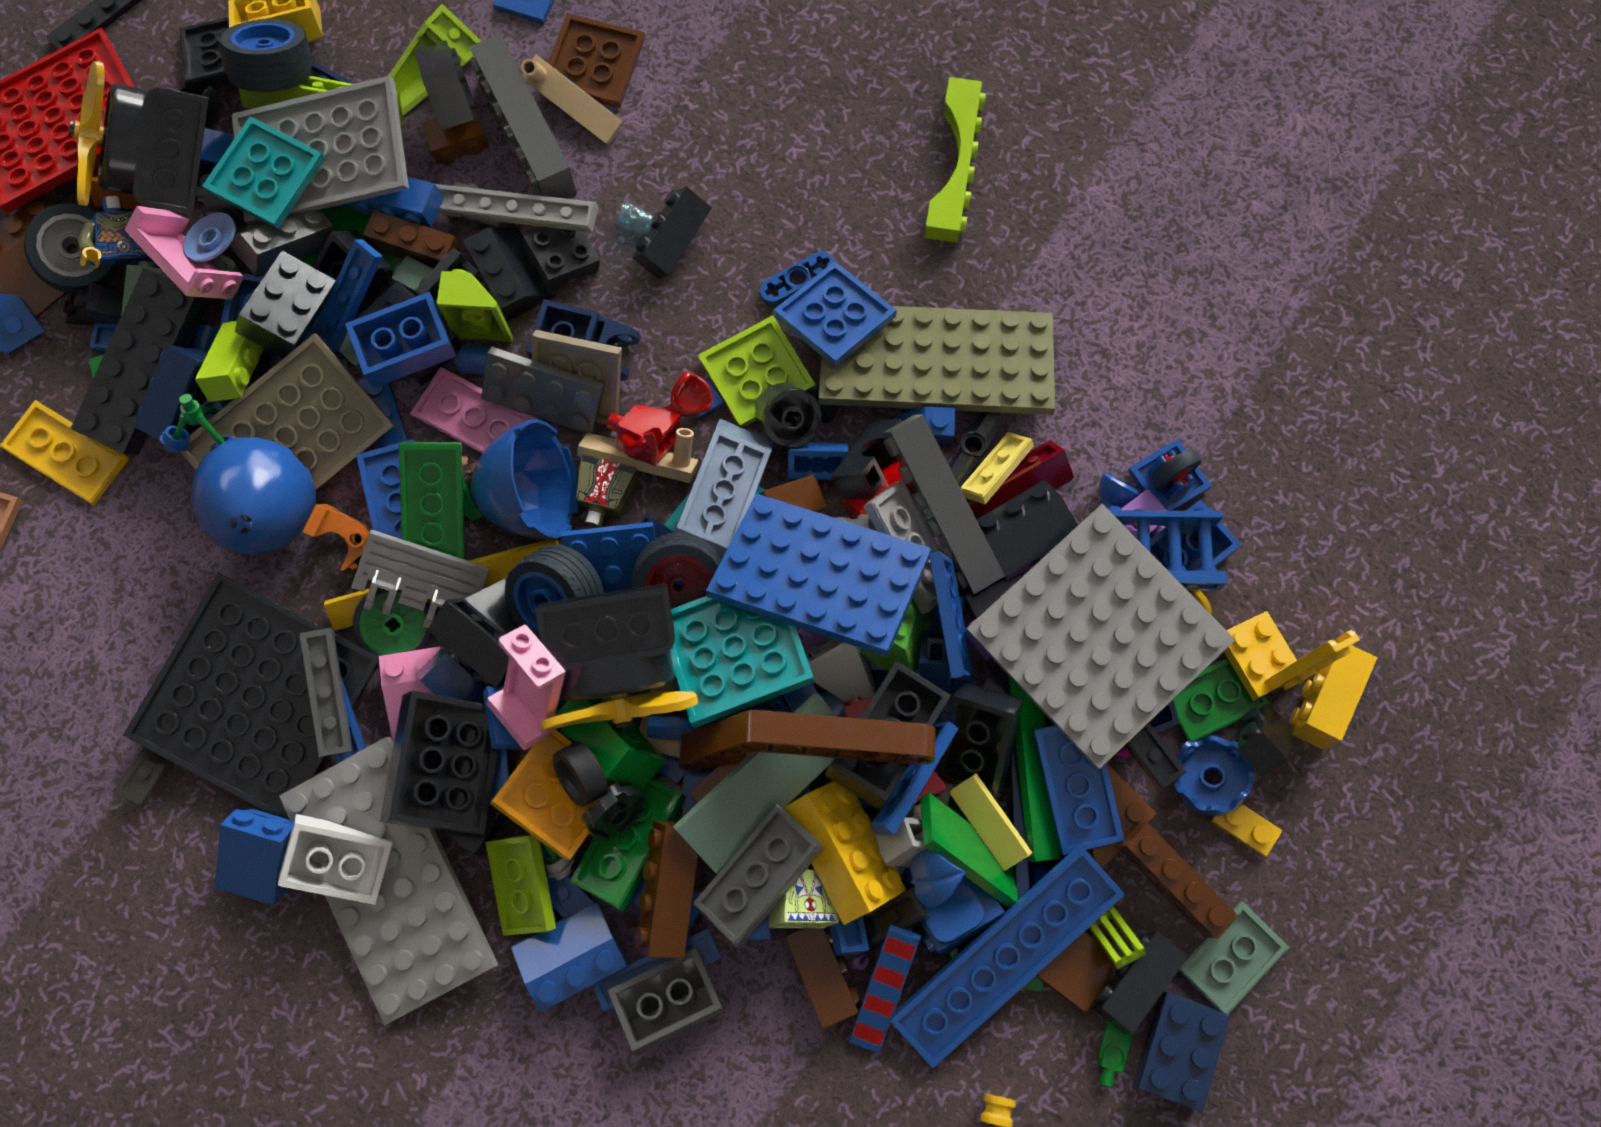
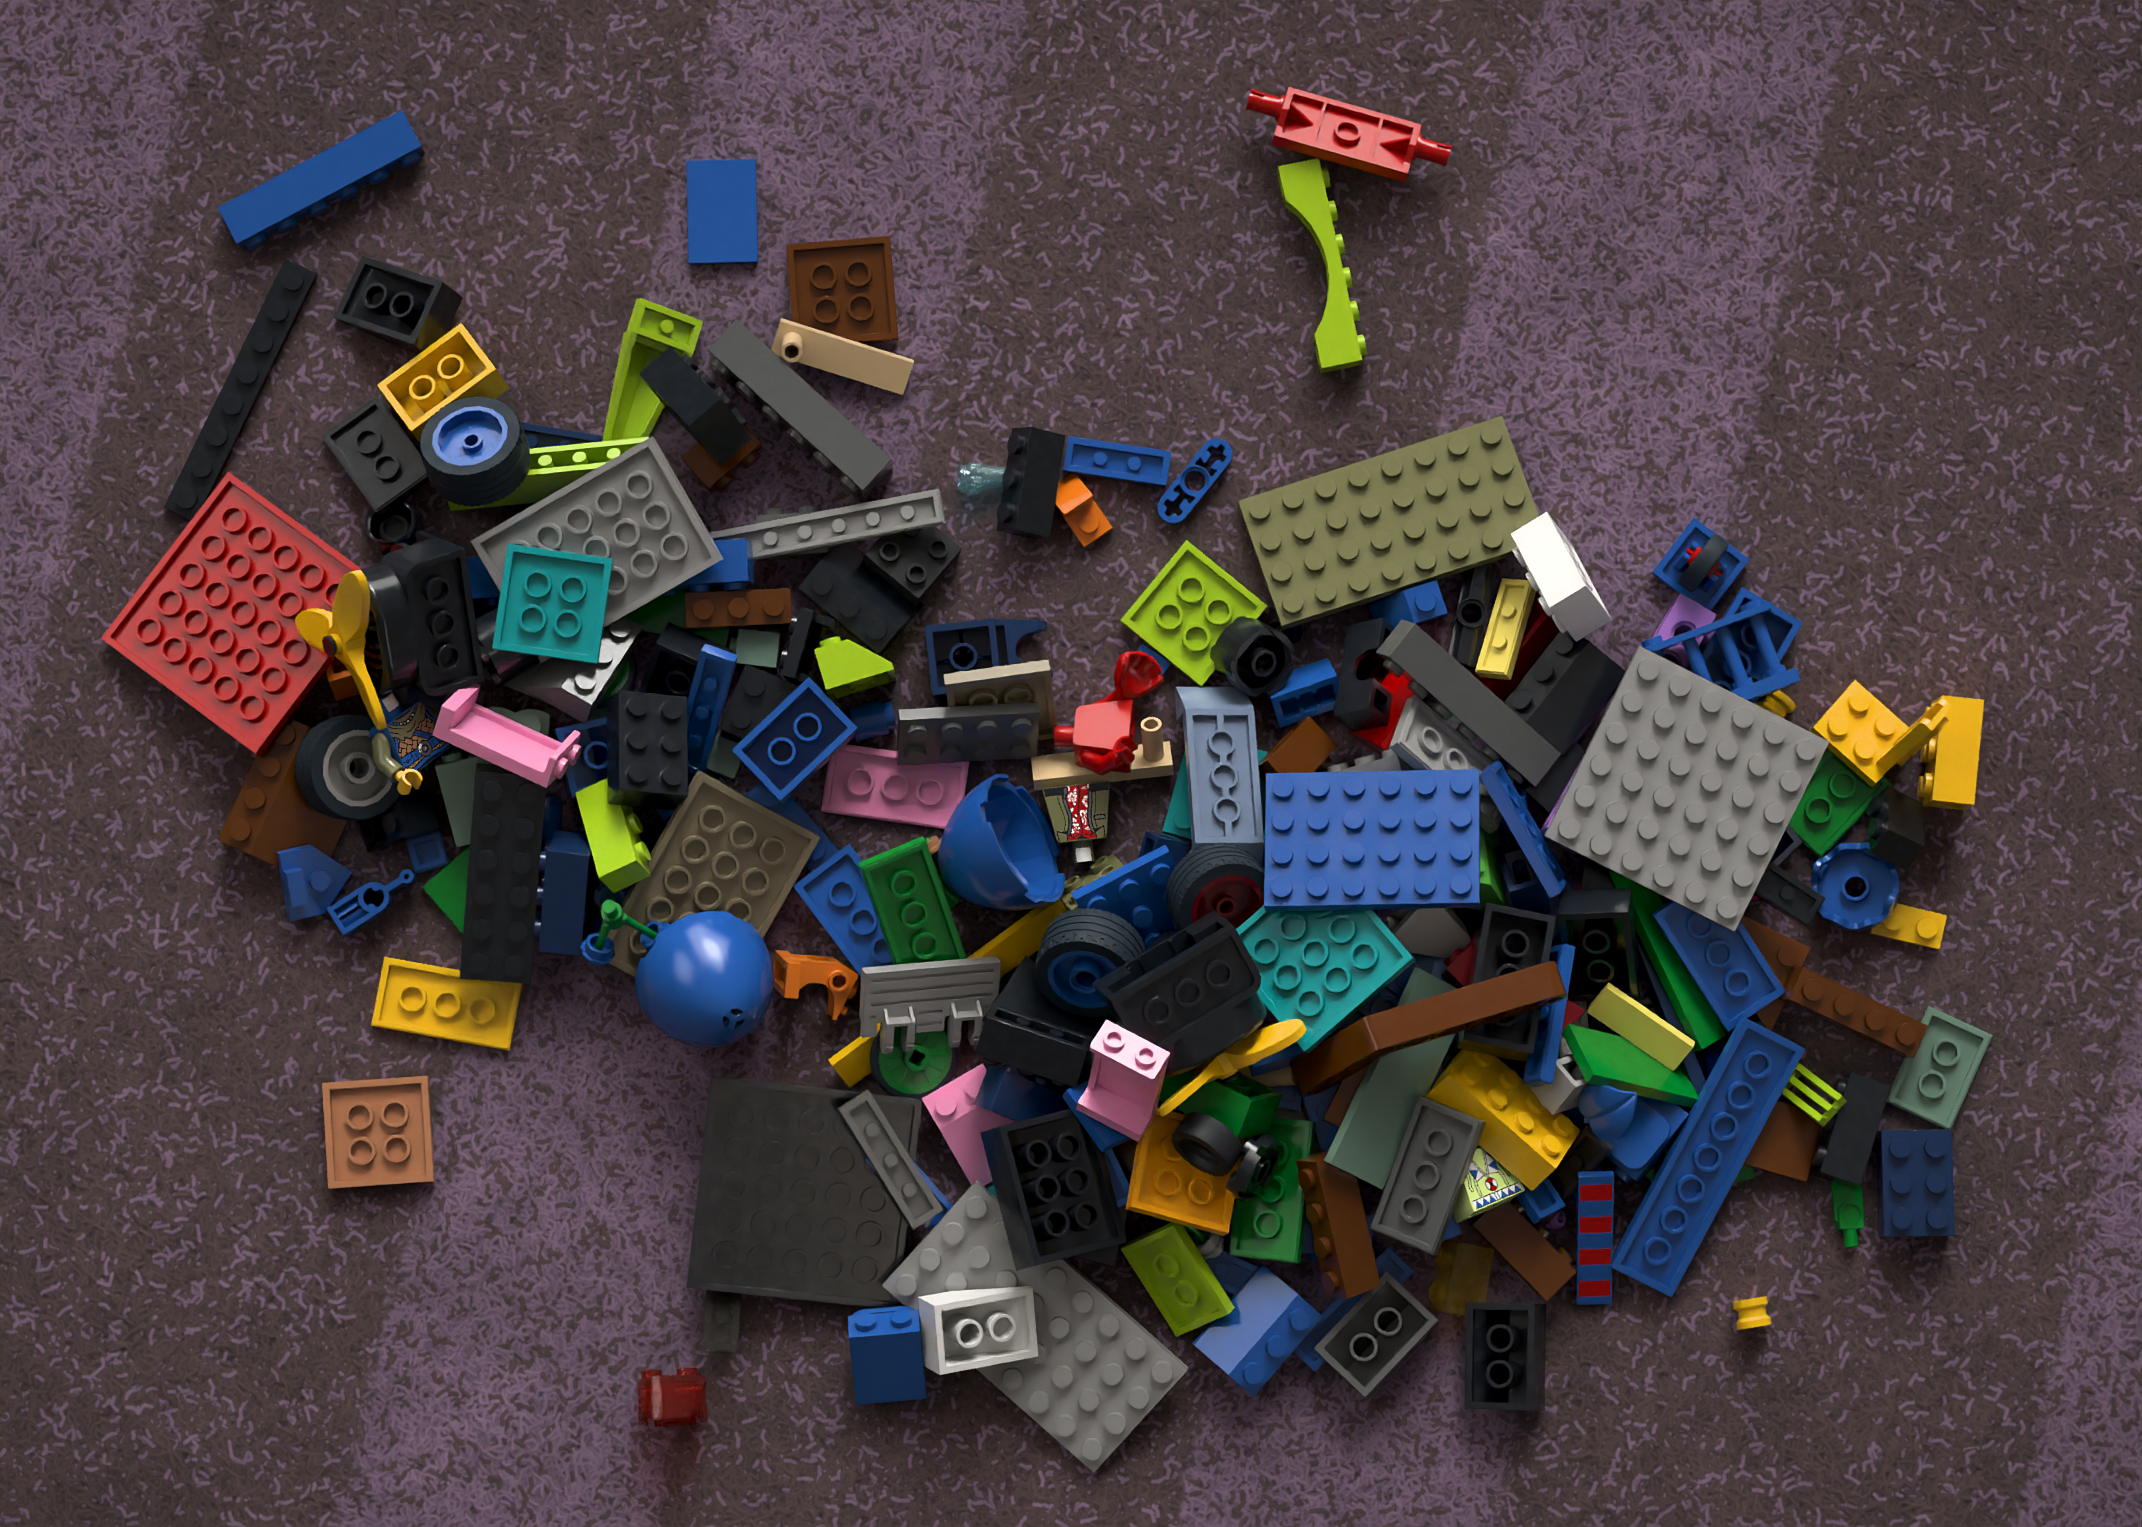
camera: 25 degrees left, 10 degrees up
(42, 355) = (358, 900): none -> blue piece
(70, 822) = (672, 1398): none -> clear red brick
(209, 237) = (505, 700): medium blue dish -> none
(702, 269) = (1080, 510): none -> orange slope
(744, 243) = (1117, 461): none -> blue plate
(759, 980) = (1460, 1276): none -> clear yellow bracket
(769, 1064) = (1505, 1356): none -> black slope
(835, 313) = (1260, 516): blue plate -> none
(1008, 74) = (1346, 133): none -> red plate
(1053, 436) = (1559, 577): none -> white brick
(1115, 491) = (1647, 604): blue brick -> none

